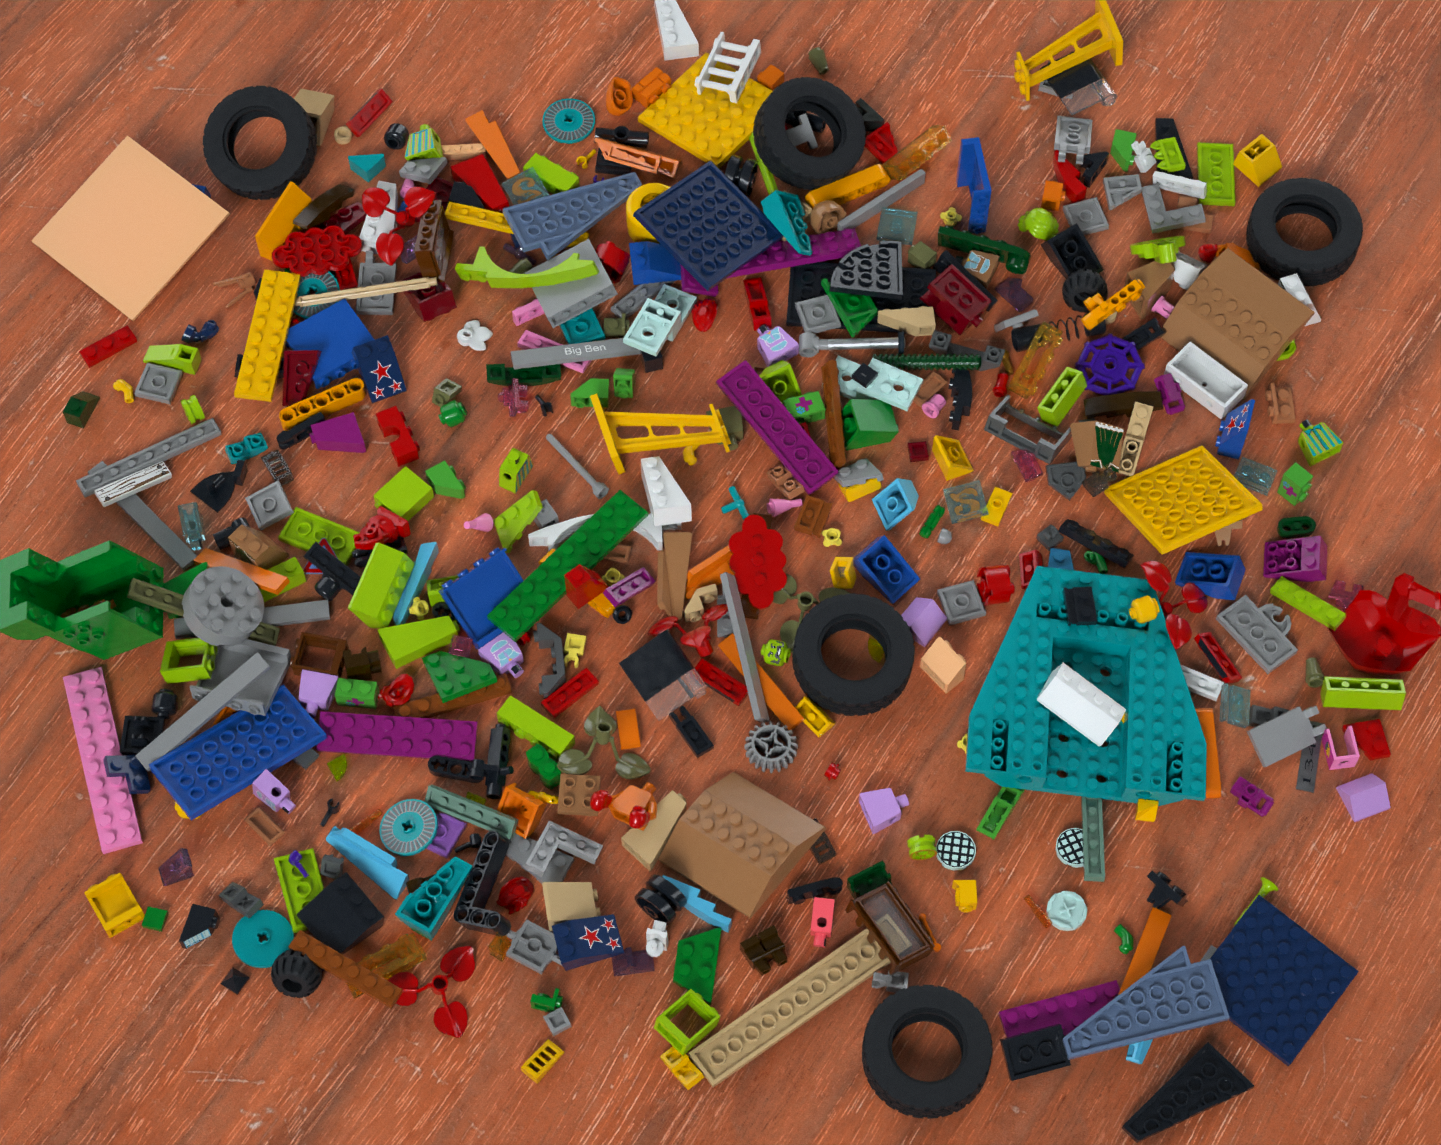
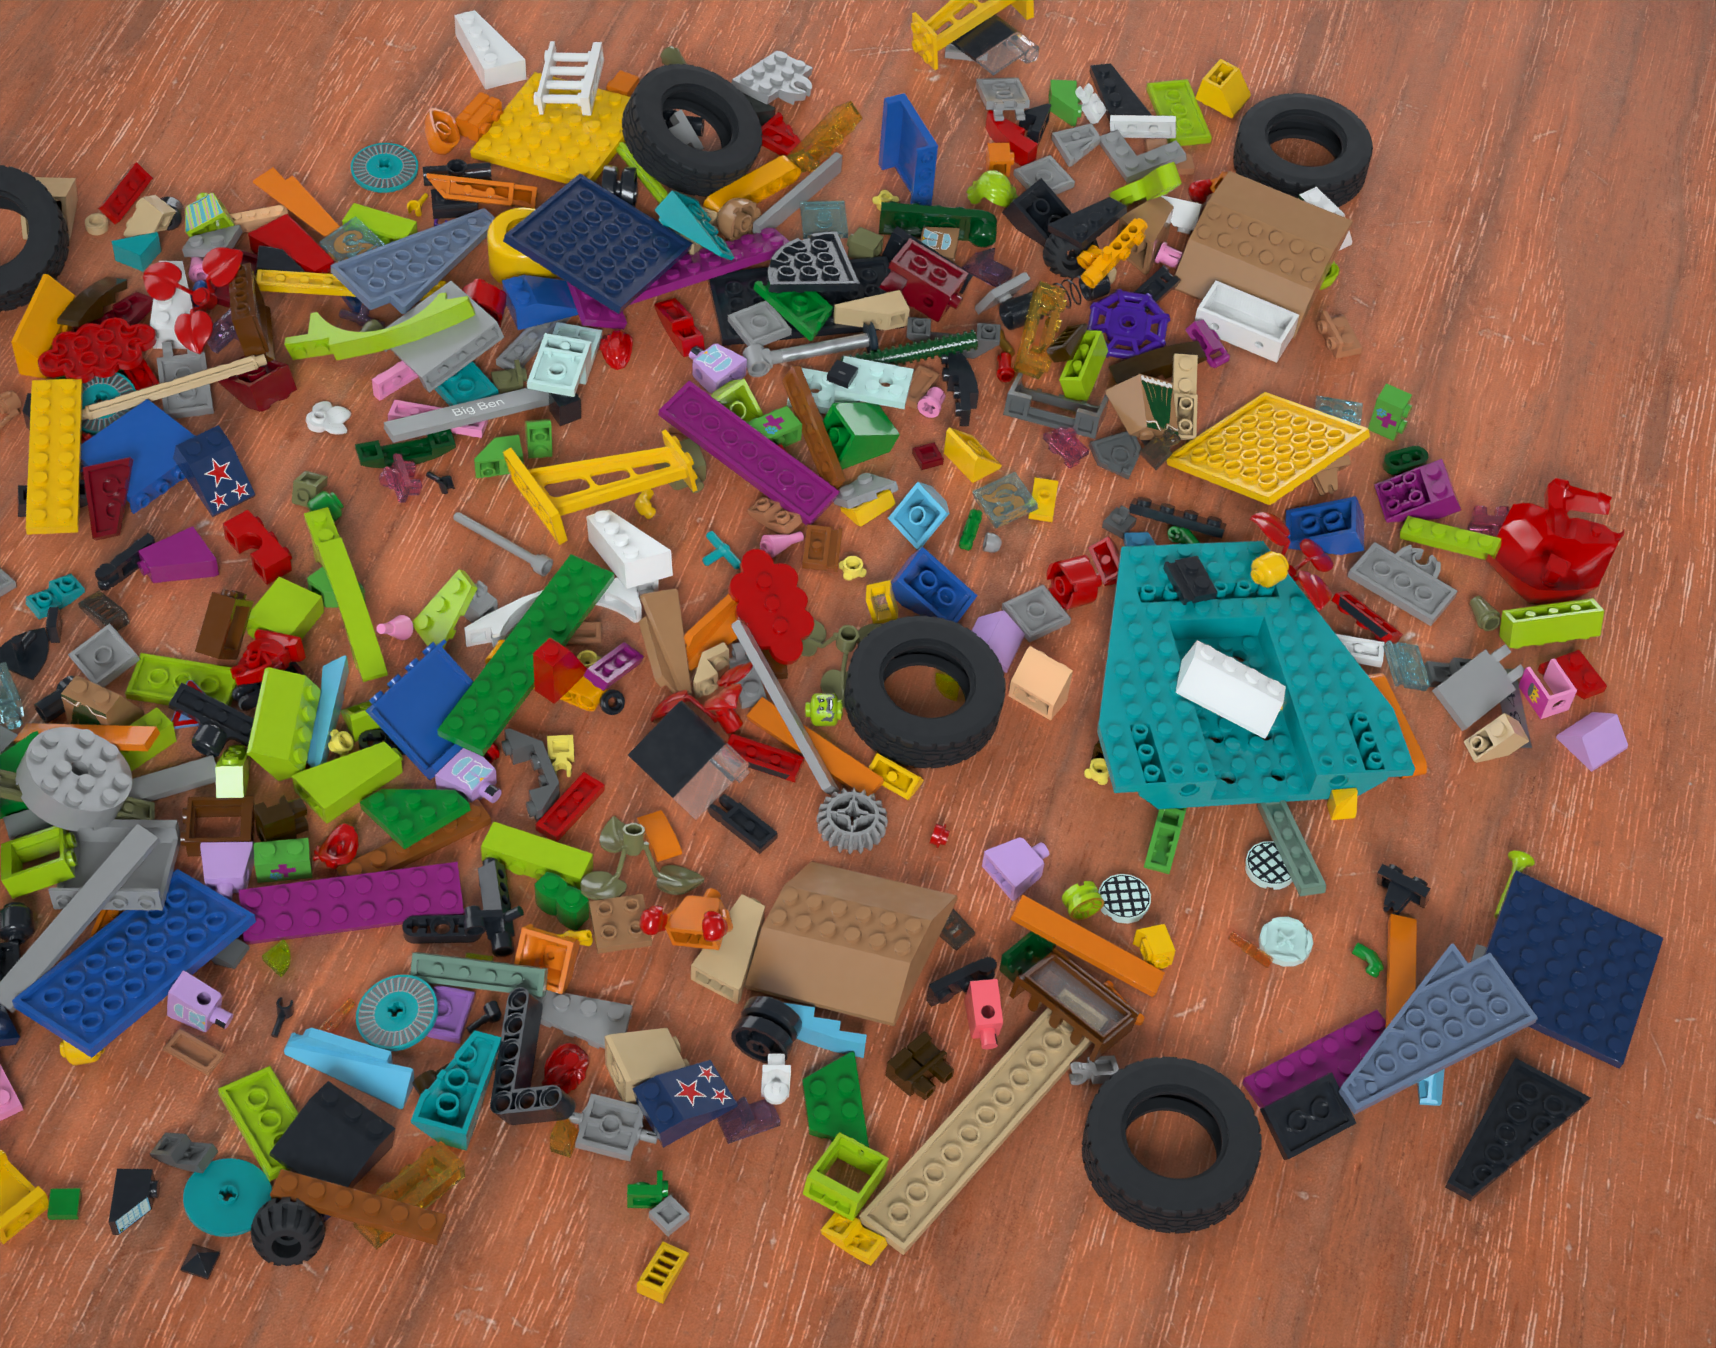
camera: 20 degrees left, 10 degrees down
(176, 868) = (81, 1129): slope -> none
(294, 859) = (248, 1084): dark purple hand -> none
(327, 397) = (156, 520): light orange beam -> none
(331, 866) = (302, 1083): dark grey tile -> none
(336, 618) = (232, 772): none -> slope
(356, 501) = (224, 625): none -> reddish brown window
(380, 141) = (150, 217): none -> tan slope
(449, 489) = (332, 555): none -> lime slope
(451, 1018) = (507, 1175): red plant -> none
(460, 646) = (409, 775): clear pink tile -> none
(515, 466) = (425, 549): lime torso -> none
(556, 837) = (605, 982): light grey plate -> none
(893, 91) = (776, 77): none -> light grey plate
(913, 884) = (1087, 945): none -> orange tile
(1052, 376) = (1067, 343): none -> dark brown slope
(1100, 273) = (1088, 223): none -> black wing
(1169, 153) = (1122, 96): lime plate -> none
(1234, 430) = (1301, 365): blue slope -> none
(1251, 796) = (1461, 763): magenta piece -> none
(1285, 781) = (1496, 739): none -> tan slope
(1318, 442) = (1397, 365): lime torso -> none

